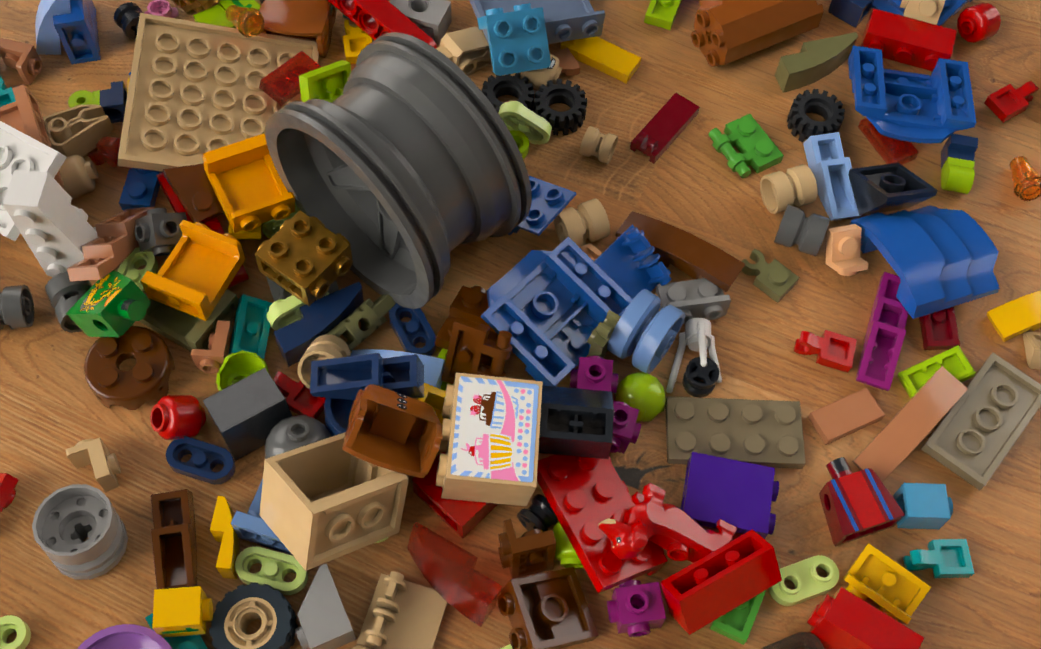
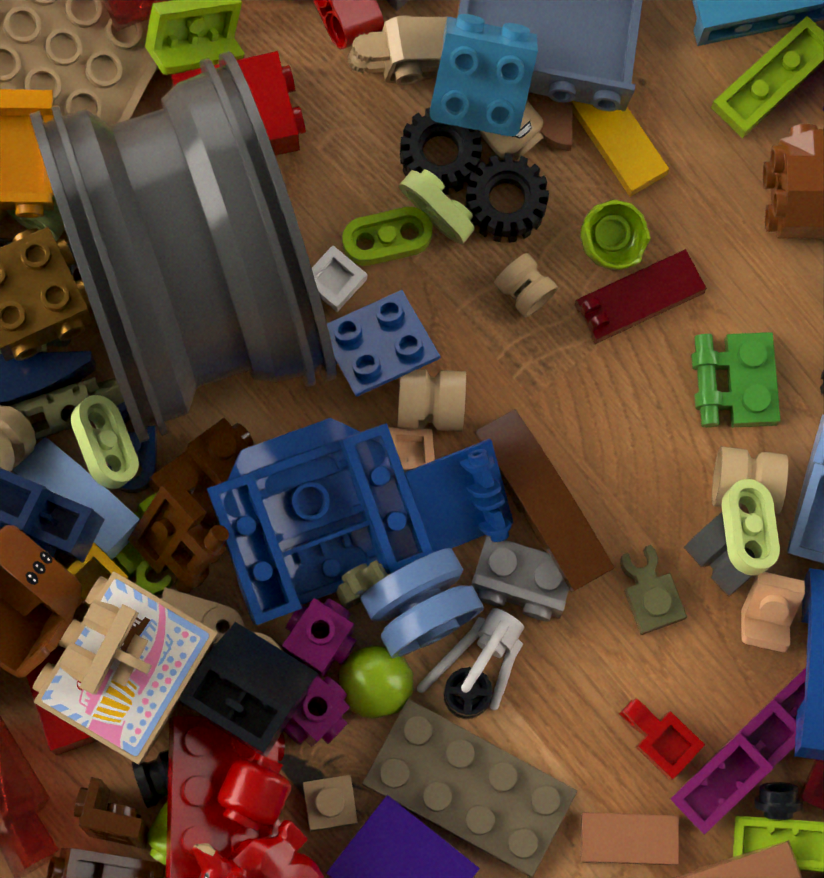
camera: 25 degrees right, 15 degrees up
(396, 327) = (106, 443): none -> yellowish green plate
(477, 399) = (115, 626): none -> tan hips
(614, 480) = (254, 792): none -> red head
(632, 99) = (615, 235): none -> lime hair
(657, 474) = (330, 803): none -> tan plate
(811, 202) = (750, 530): none -> yellowish green plate
(917, 351) = (778, 800): none -> black plate

